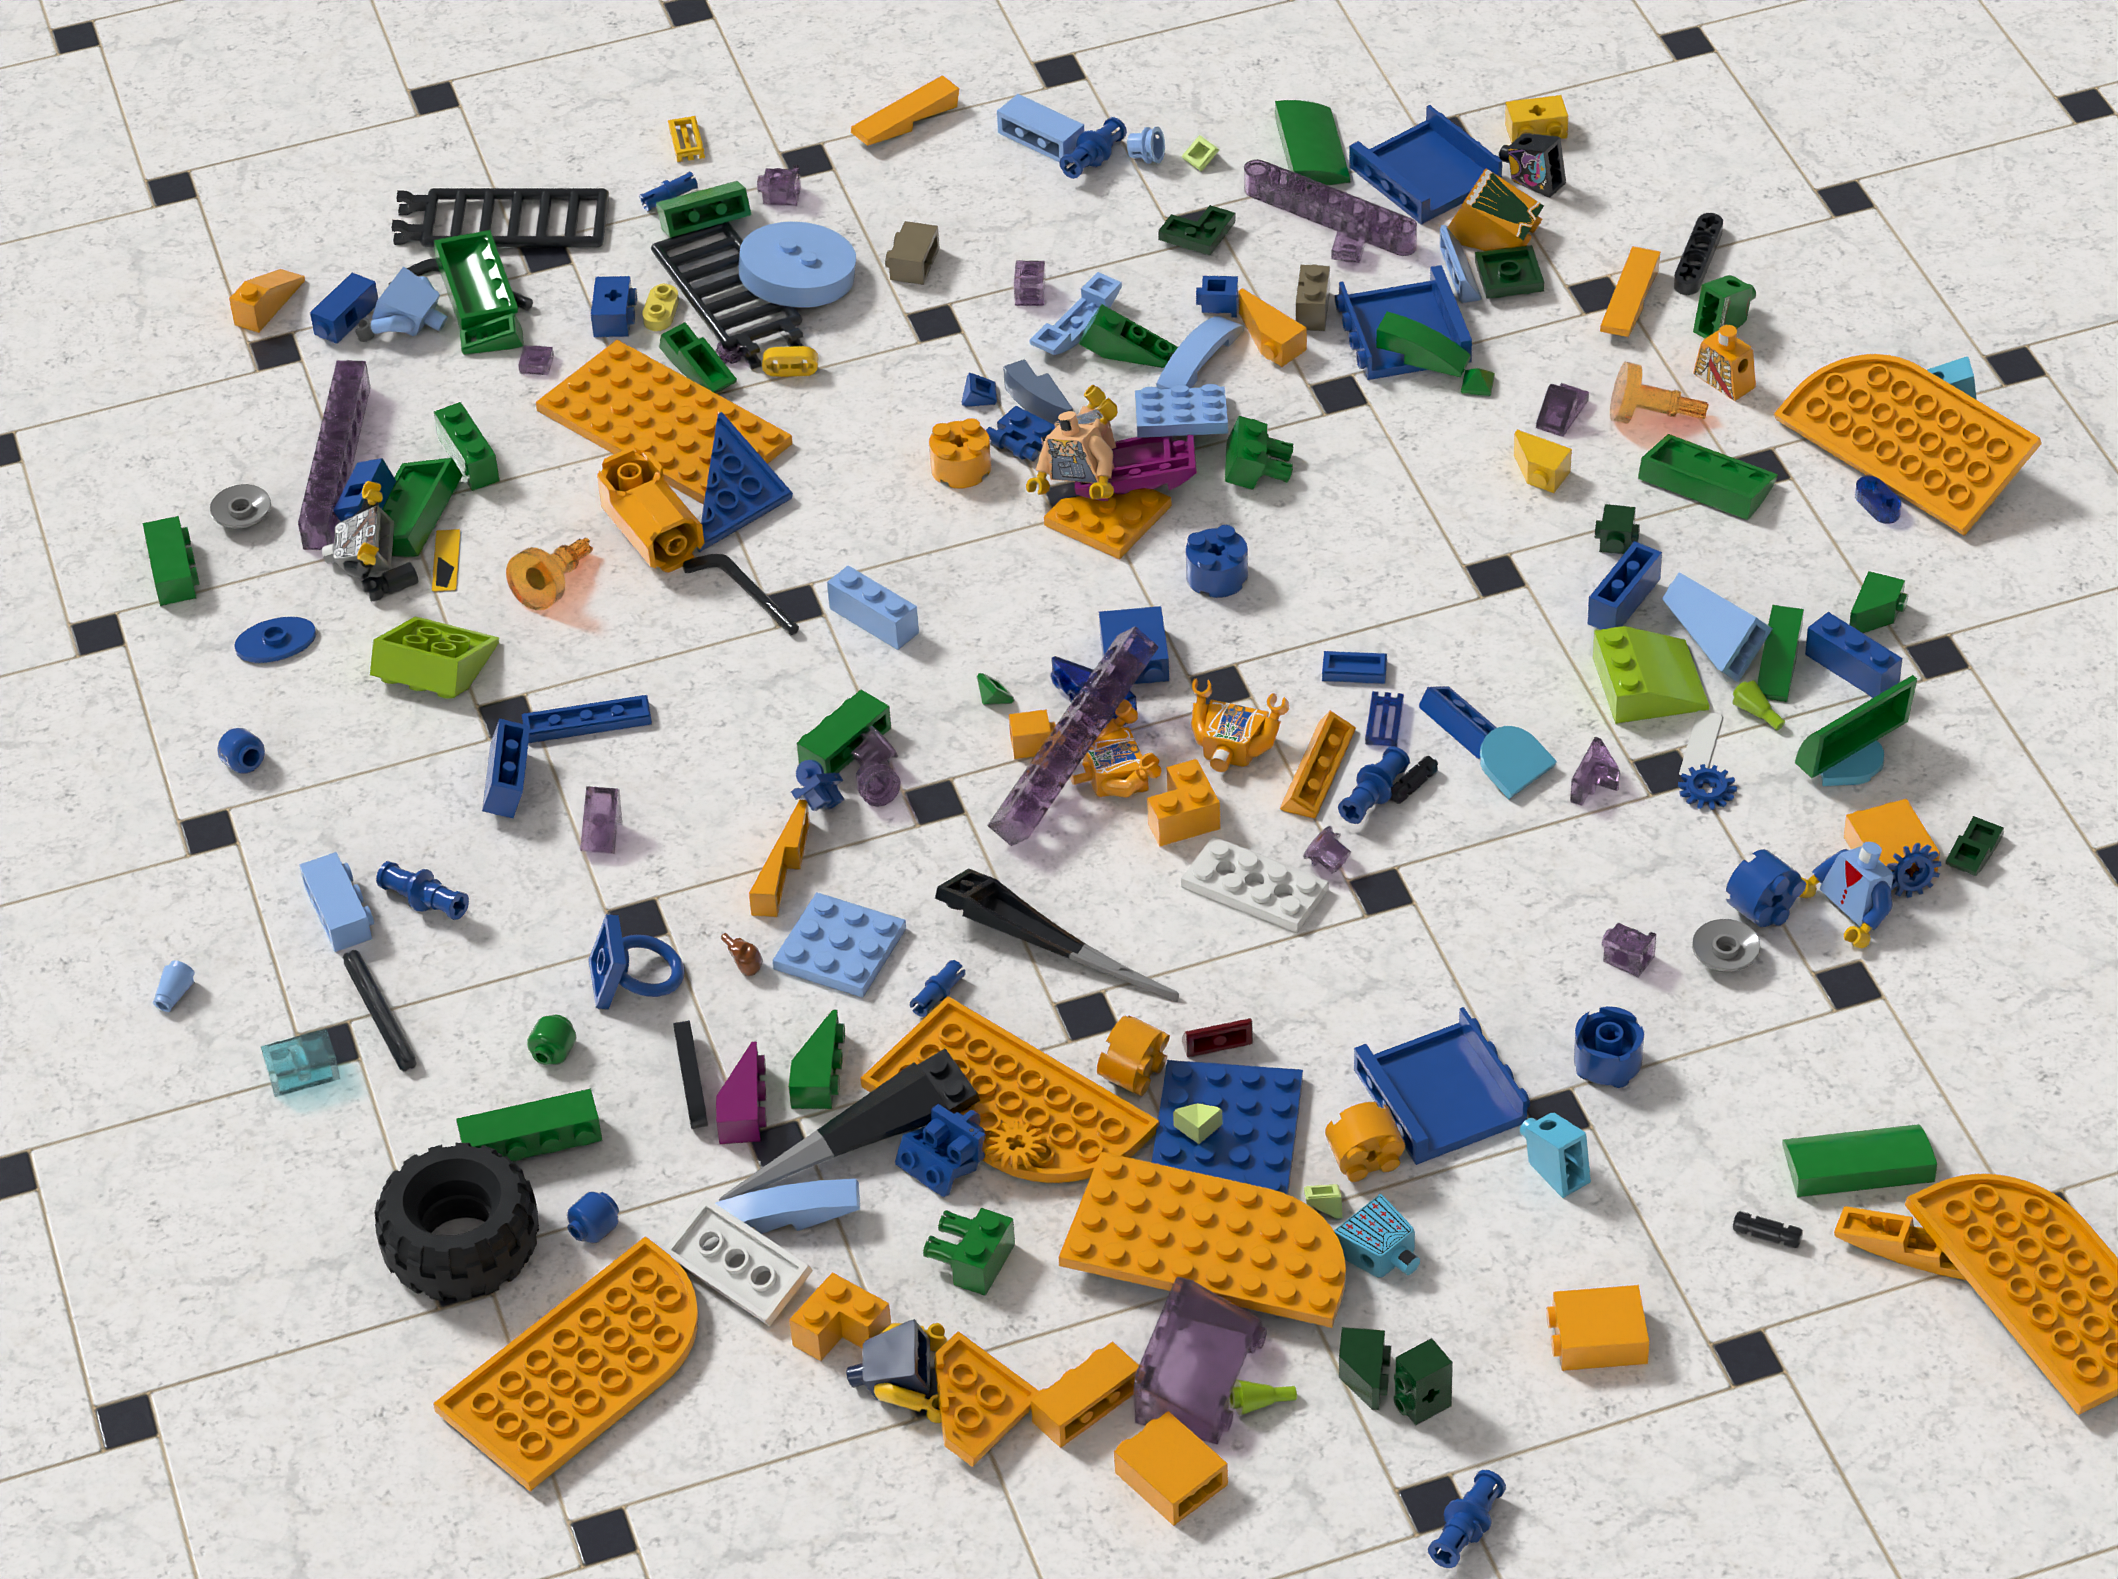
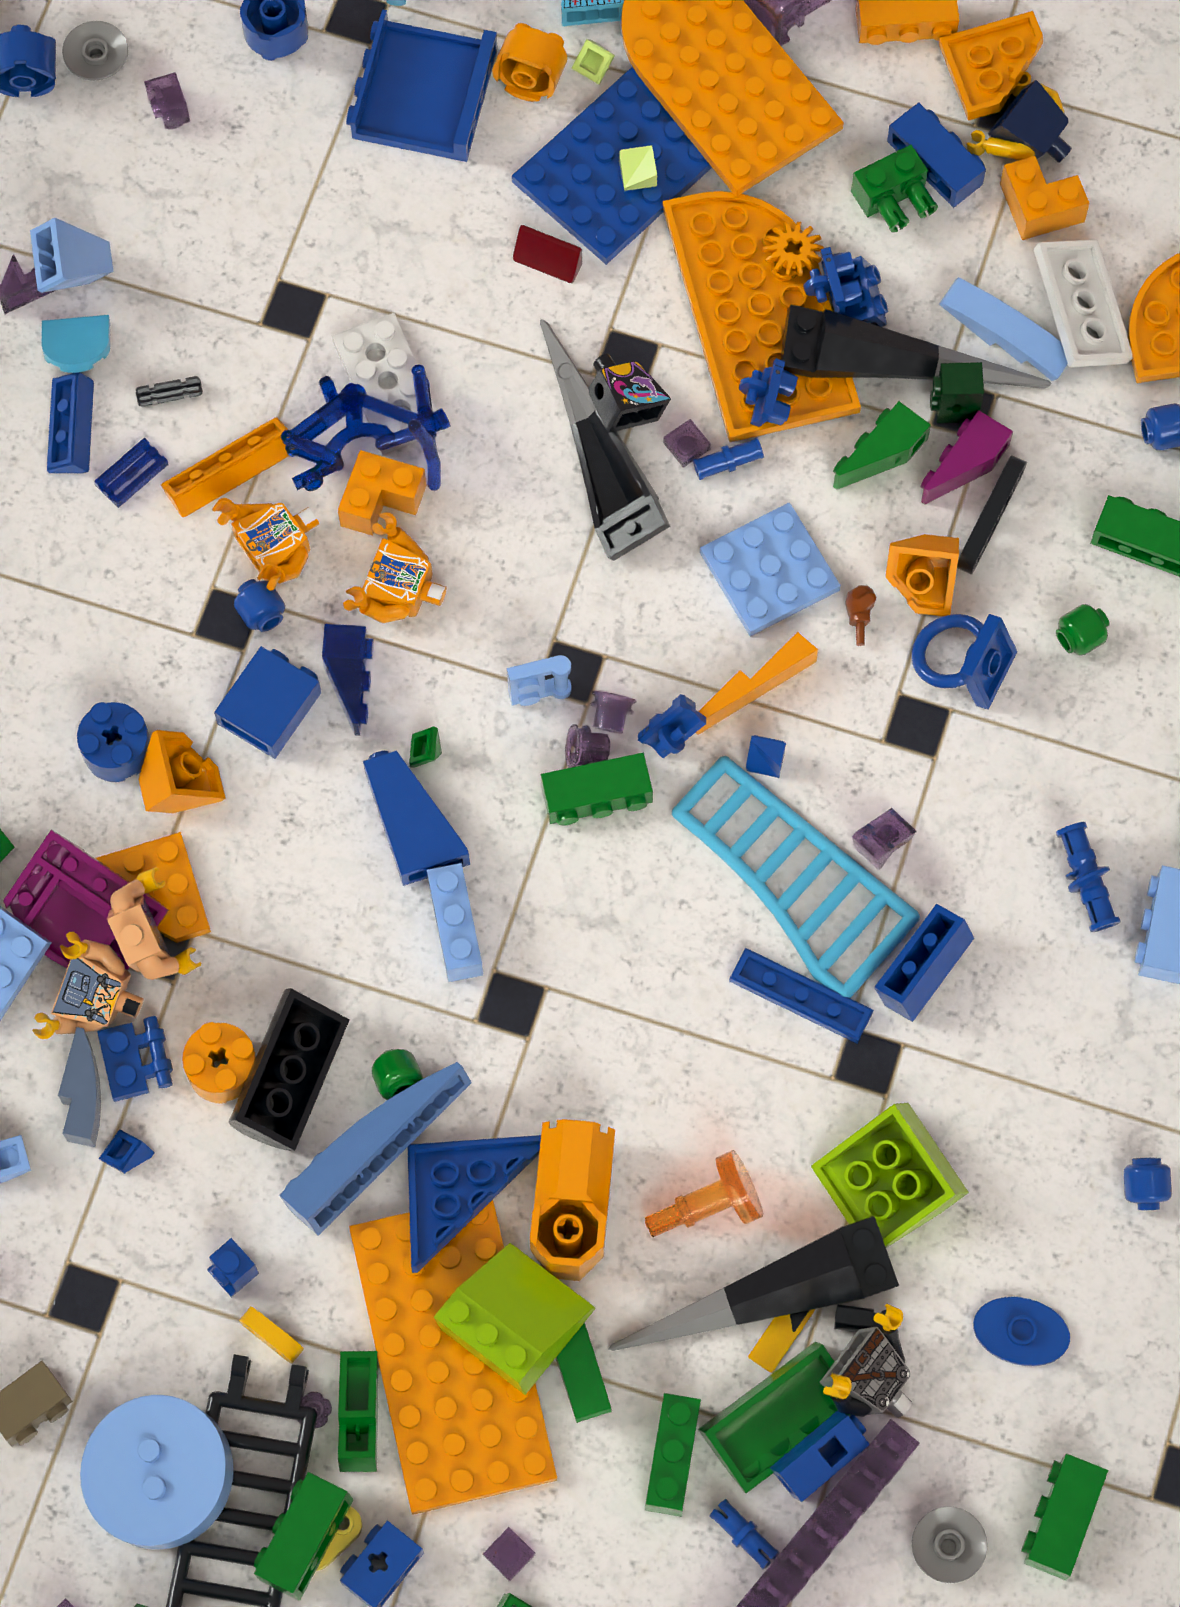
camera: 145 degrees left, 25 degrees up
(386, 443) = (744, 1534): none -> blue pin
(438, 585) = (824, 1273): none -> black plate
(570, 450) = (583, 1377): none -> green slope
(631, 420) = (514, 1316): none -> lime slope
(647, 755) = (779, 907): none -> medium azure bar
(673, 279) = (302, 1535): none -> green brick
(711, 1004) = (924, 572): none -> light orange slope
(729, 567) = (536, 1046): black piece -> none
(734, 826) = (765, 756): none -> blue slope
(783, 1118) = (957, 392): none -> dark green brick
(817, 458) = (369, 1148): none -> medium blue slope
(832, 514) = (395, 1072): none -> green head
(847, 365) = (232, 1267): none -> blue brick
(909, 472) = (288, 1071): none -> black brick
(929, 1017) = (763, 392): none -> blue hips
(951, 751) = (528, 680): none -> light blue plate
(961, 643) = (411, 820): none -> blue slope
(961, 1299) = (949, 164): none -> blue brick
(980, 978) = (686, 443): none -> clear purple plate
(1029, 732) = (437, 667): light orange brick -> none
(1056, 967) = (626, 394): none -> black torso
(1072, 736) = (404, 596): clear purple brick -> none
(1133, 1054) = (636, 263): light orange brick -> none
(1148, 571) = (177, 776): none -> light orange slope
(1185, 692) = (259, 606): none -> blue head
(1259, 835) = (349, 403): none -> clear blue piece
(1327, 850) = (308, 360): clear purple piece -> none
(1354, 667) = (102, 548): blue tile -> none
(1373, 785) = (211, 396): blue piece -> none
(1567, 780) = (68, 256): none -> light blue slope

